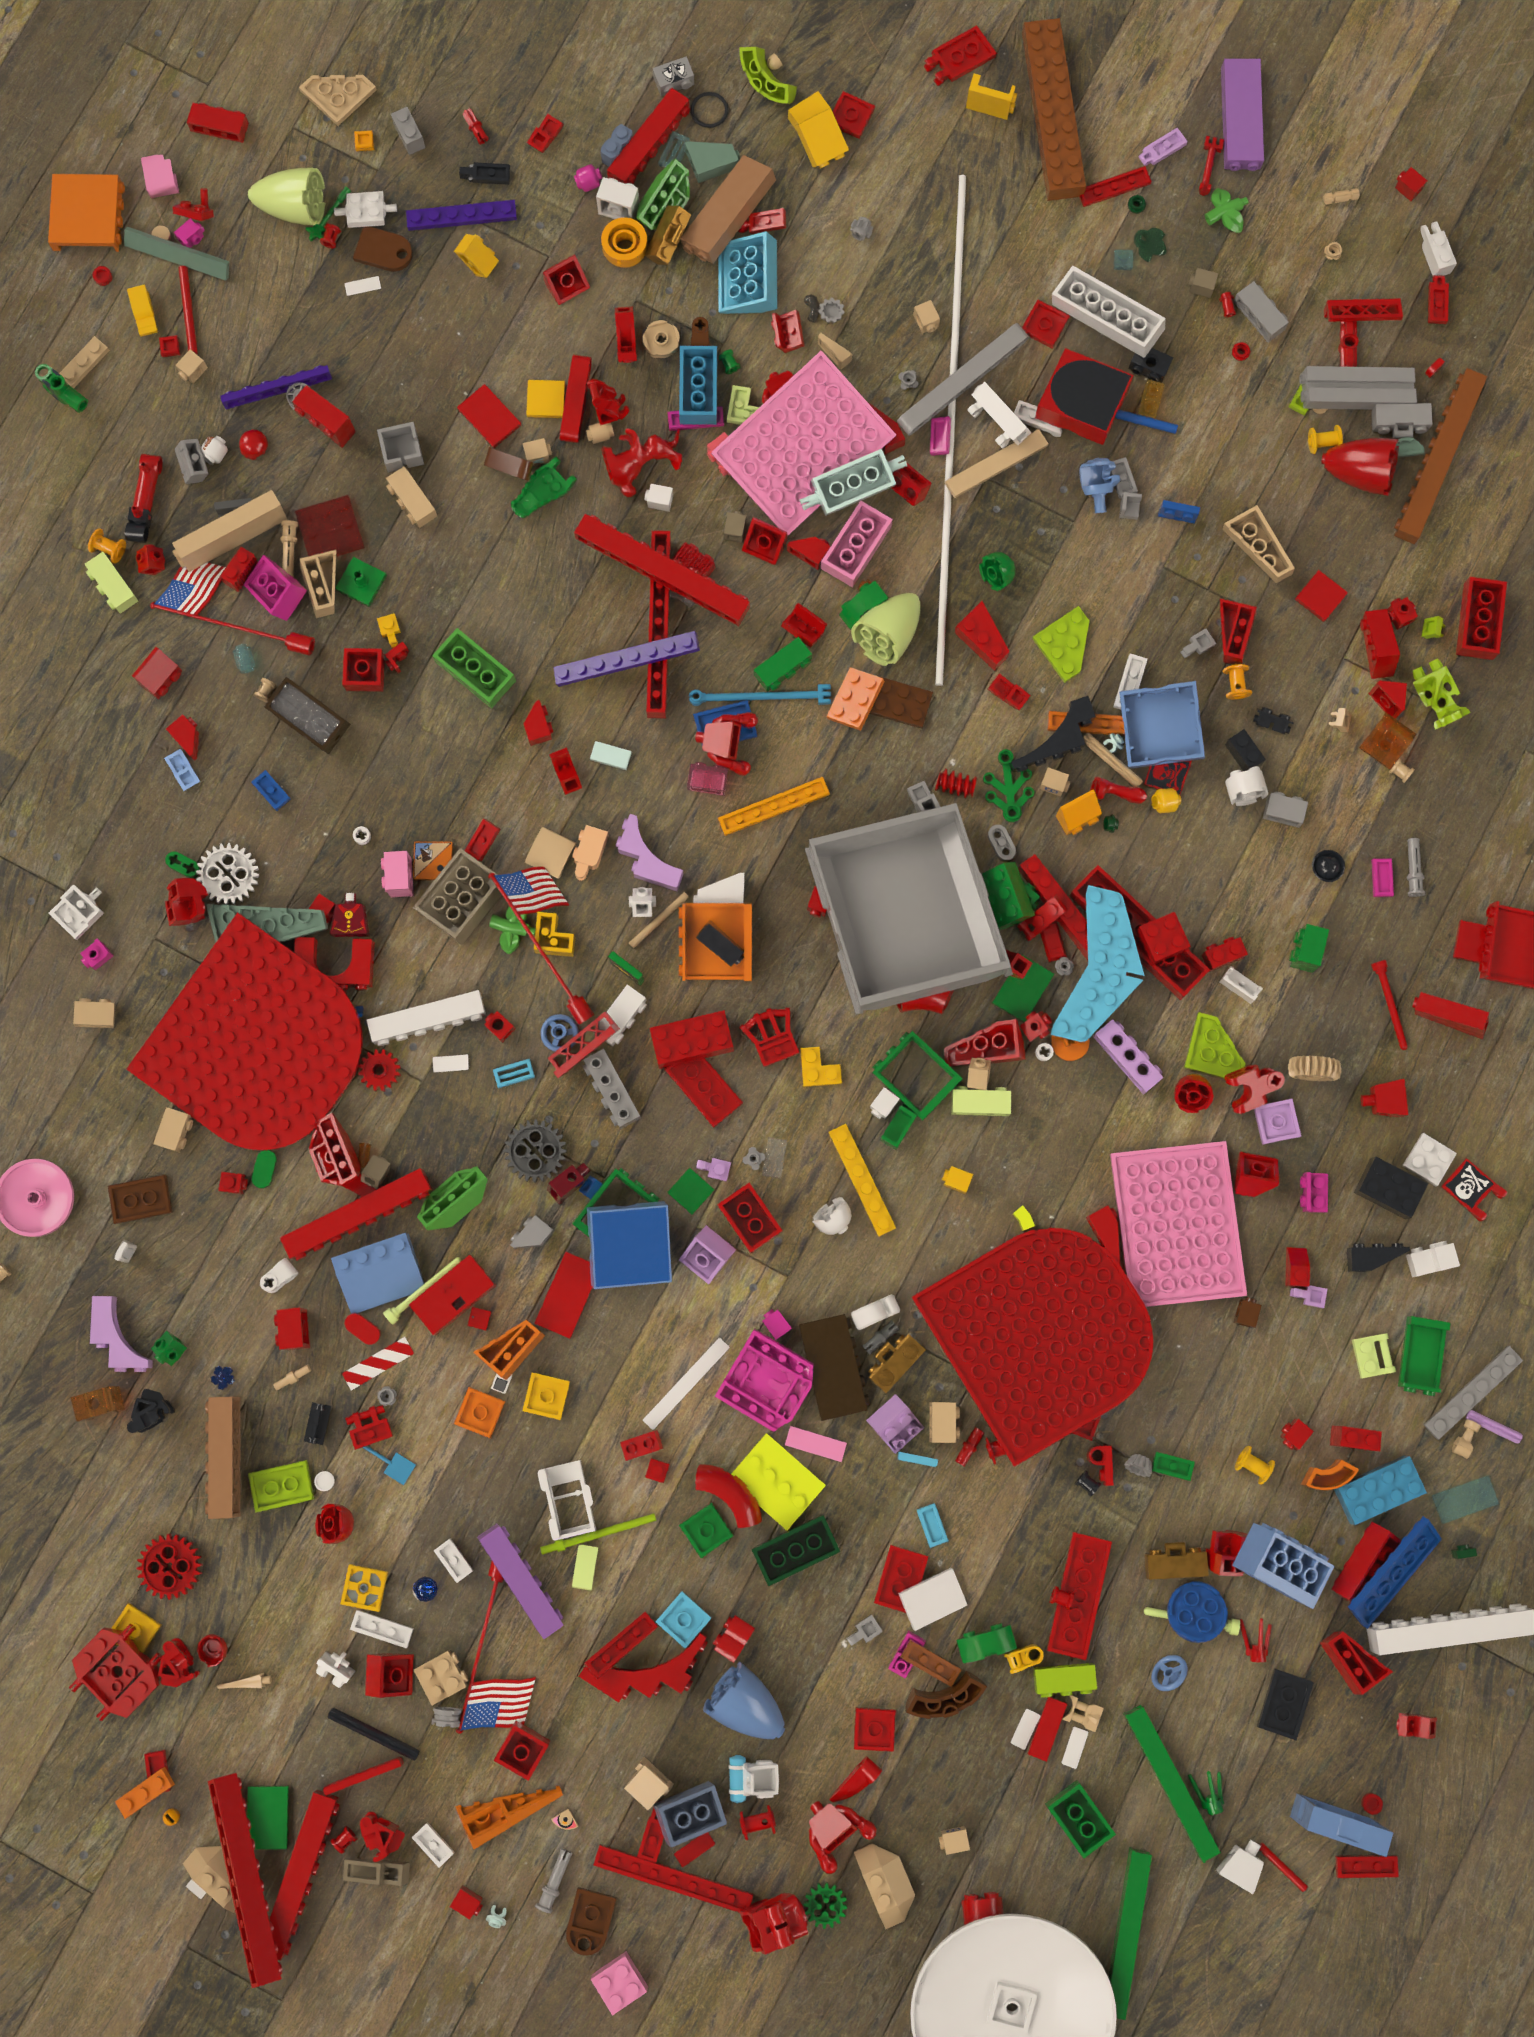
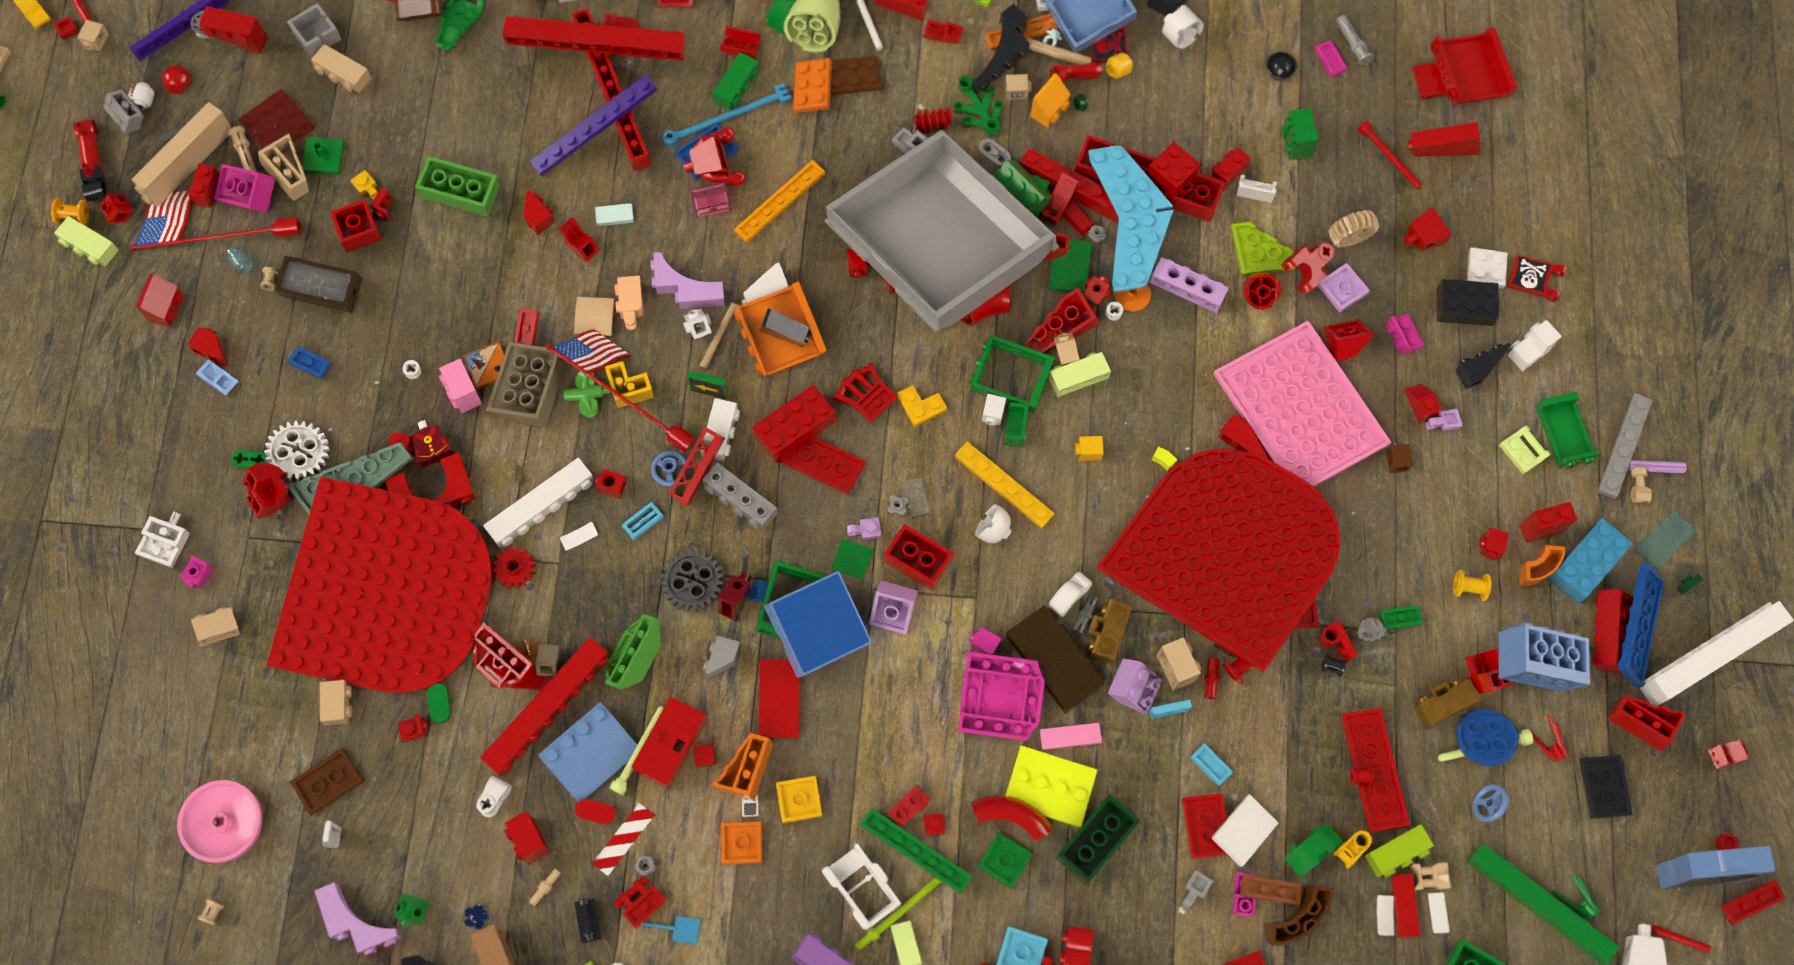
camera: 25 degrees left, 10 degrees down
(629, 1488) = (916, 851): none -> green plate
(686, 1383) = (925, 734): white sticker -> none
(1285, 809) = (1223, 35): light grey brick -> none

